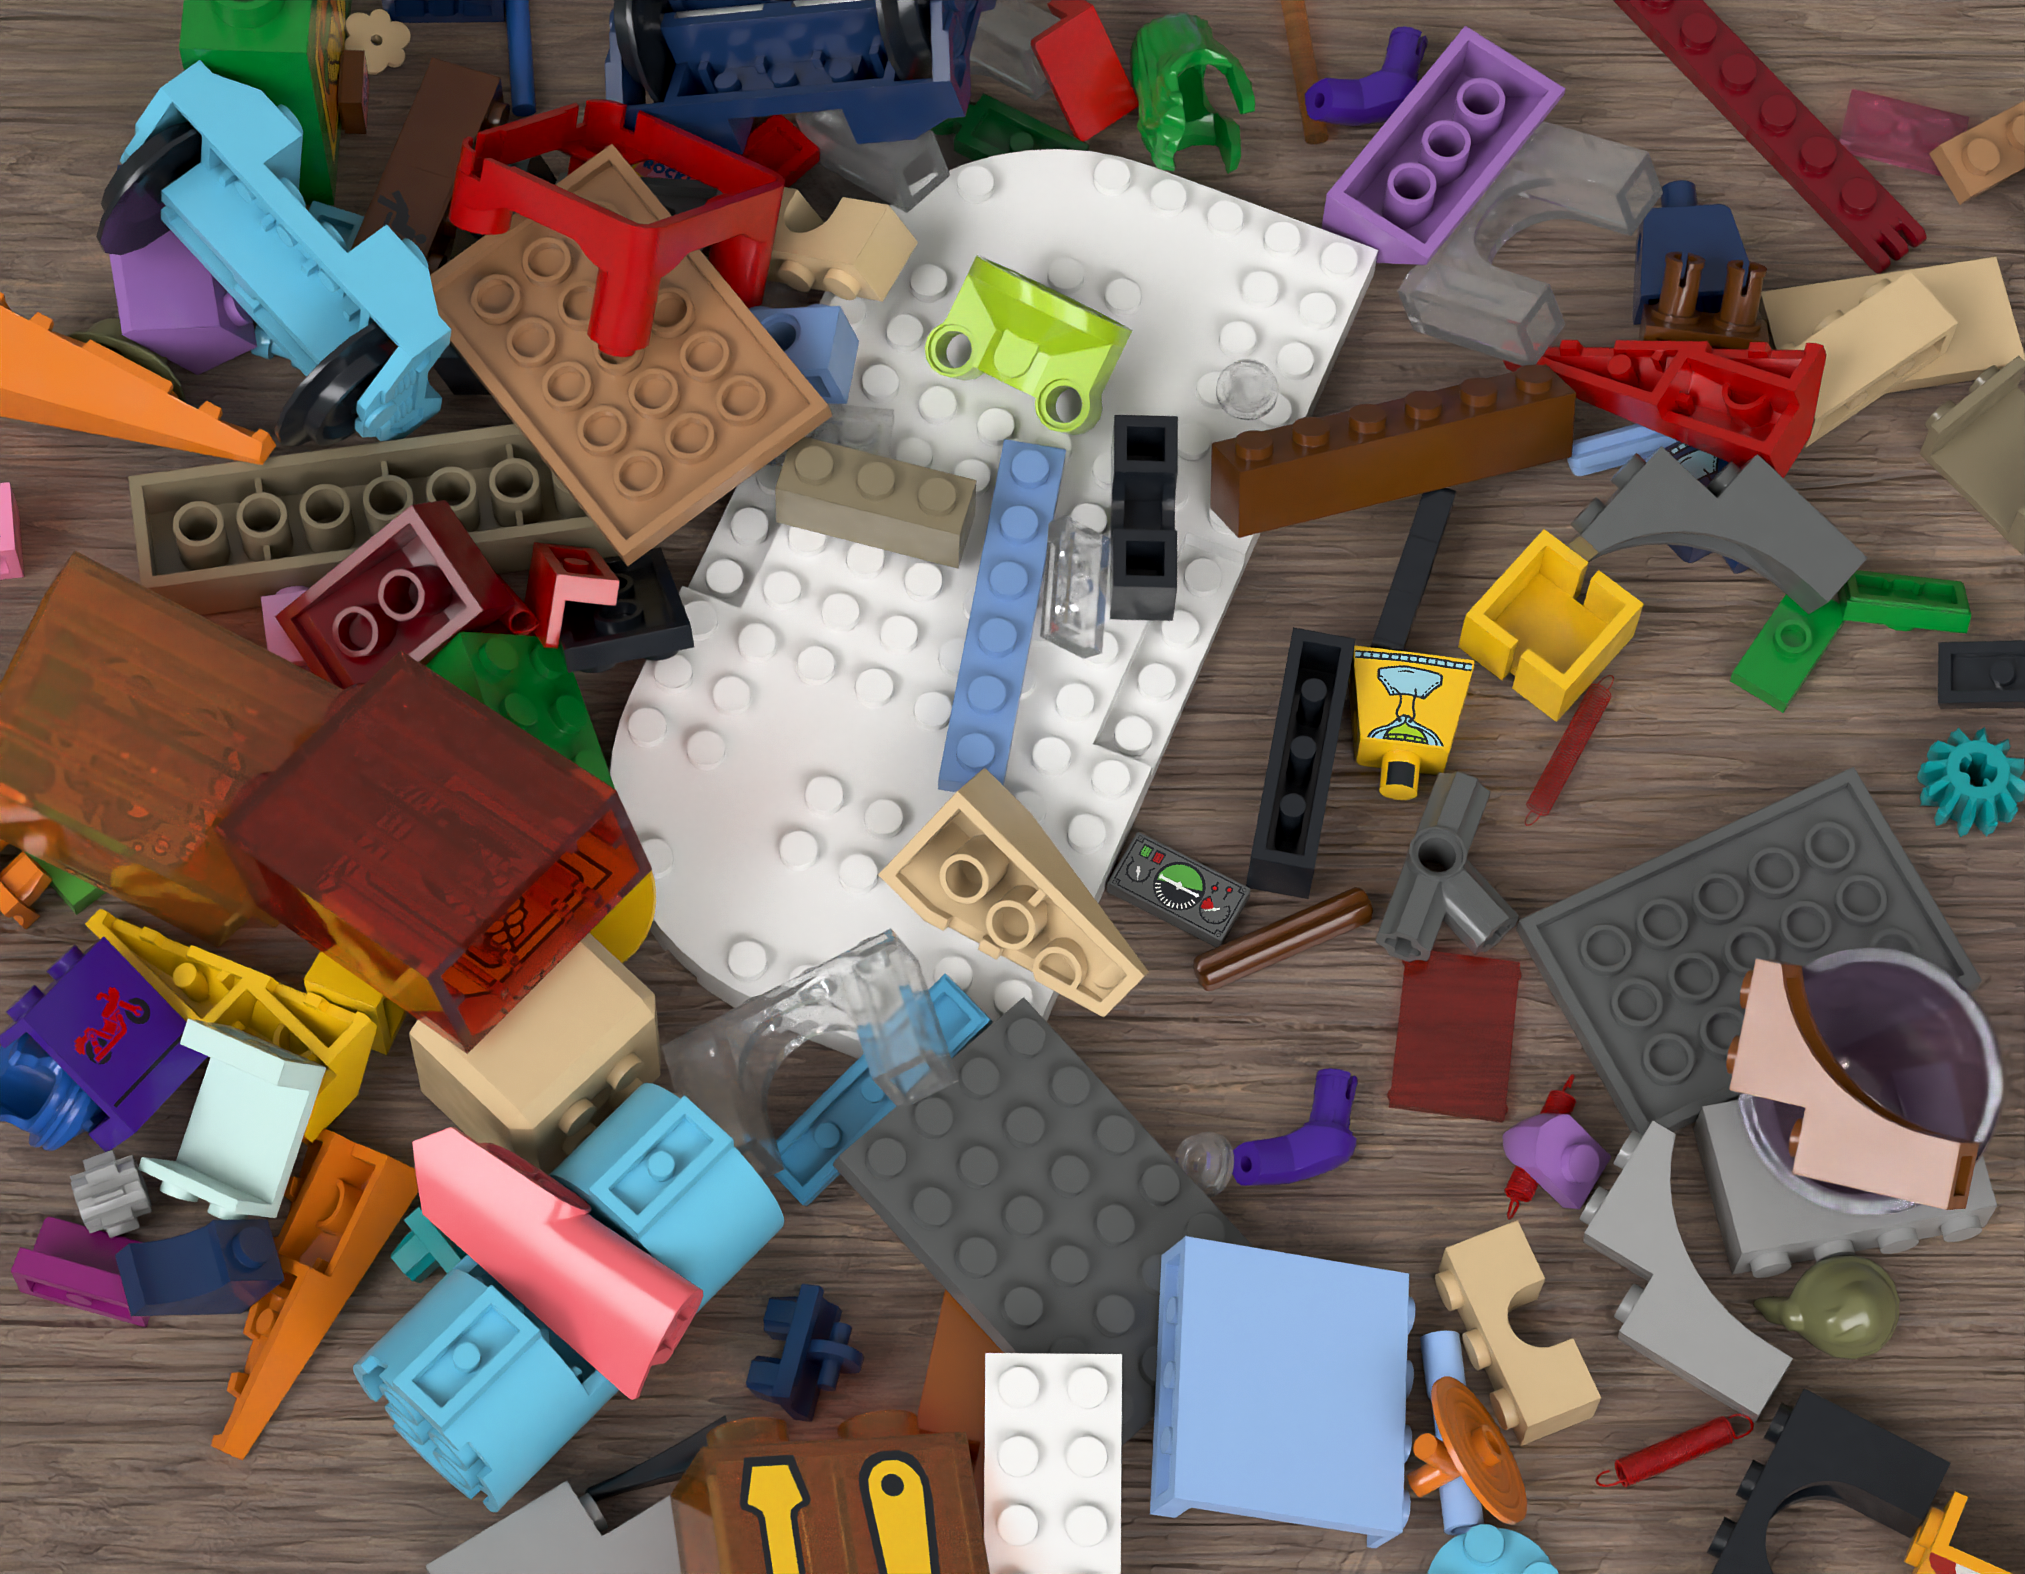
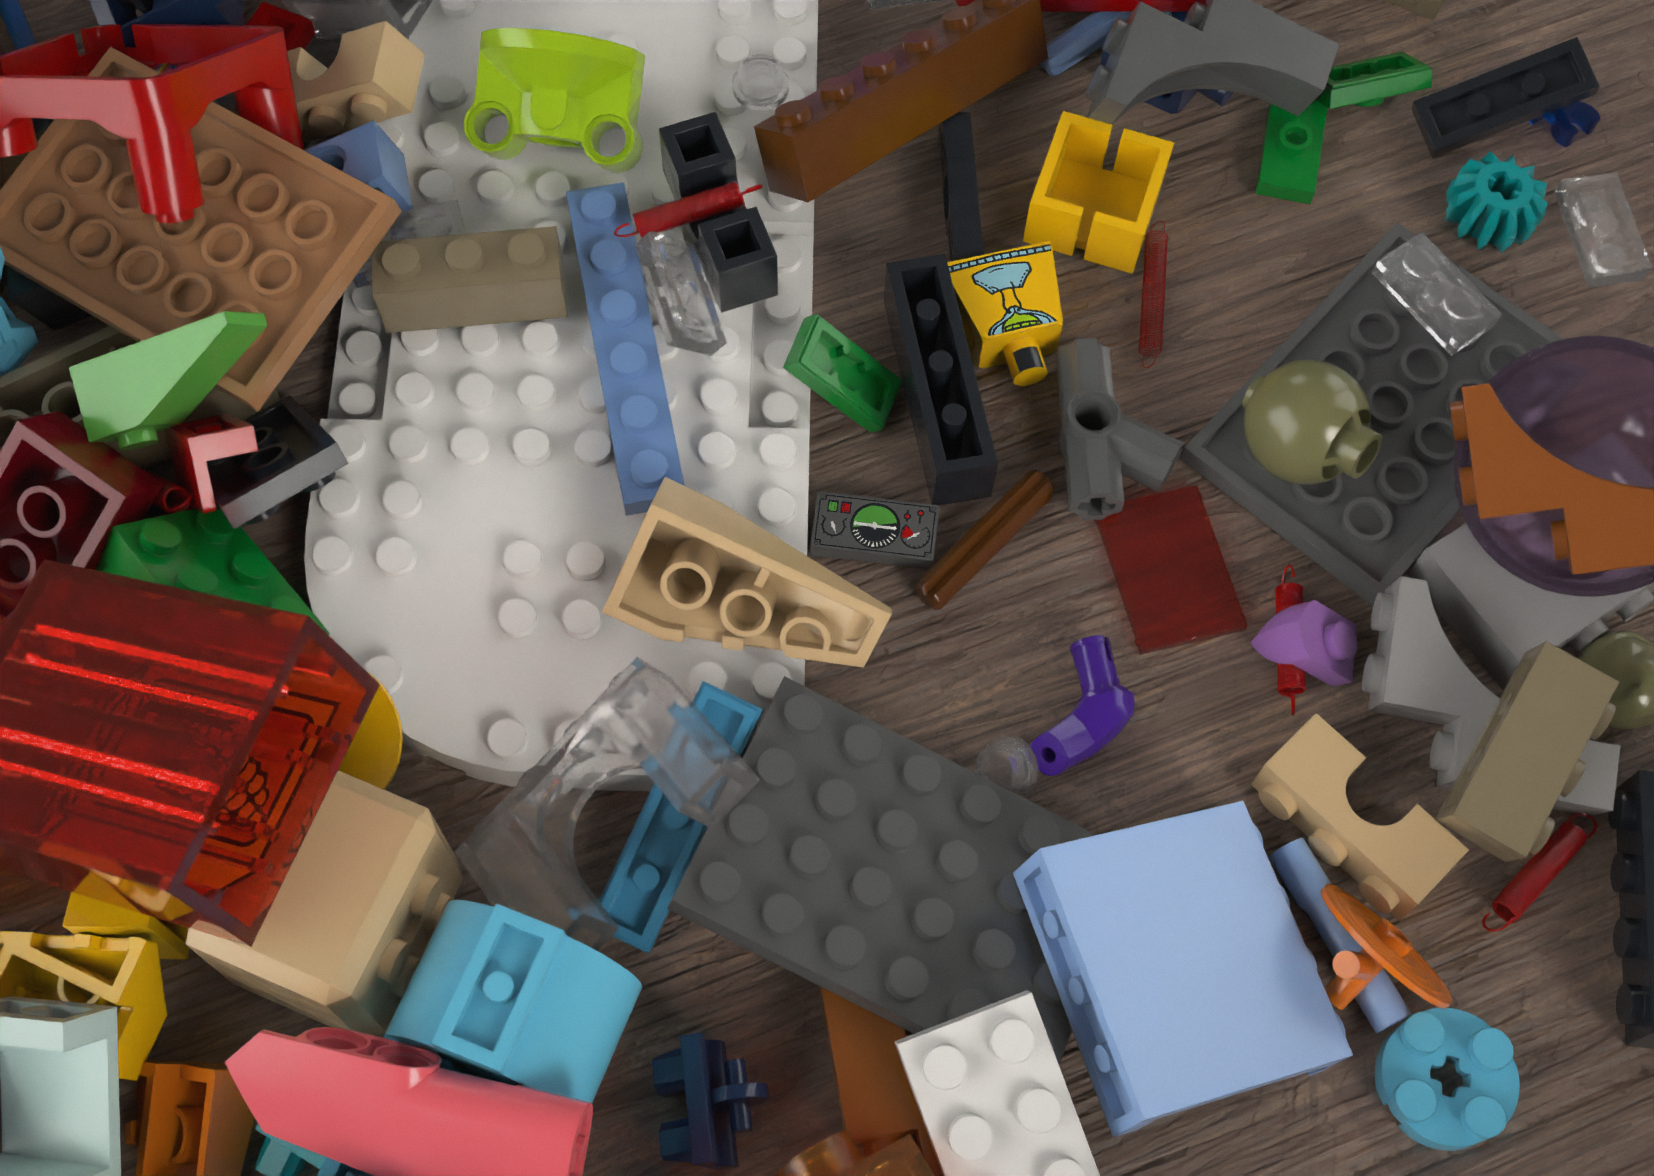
camera: 20 degrees left, 0 degrees up
(547, 508) = (159, 379): none -> bright green slope
(1113, 506) = (688, 209): none -> red piece
(1208, 723) = (842, 373): none -> green plate
(1637, 941) = (1309, 423): none -> olive brick
(1691, 1328) = (1529, 753): none -> dark tan brick
(1851, 856) = (1436, 293): none -> clear plate

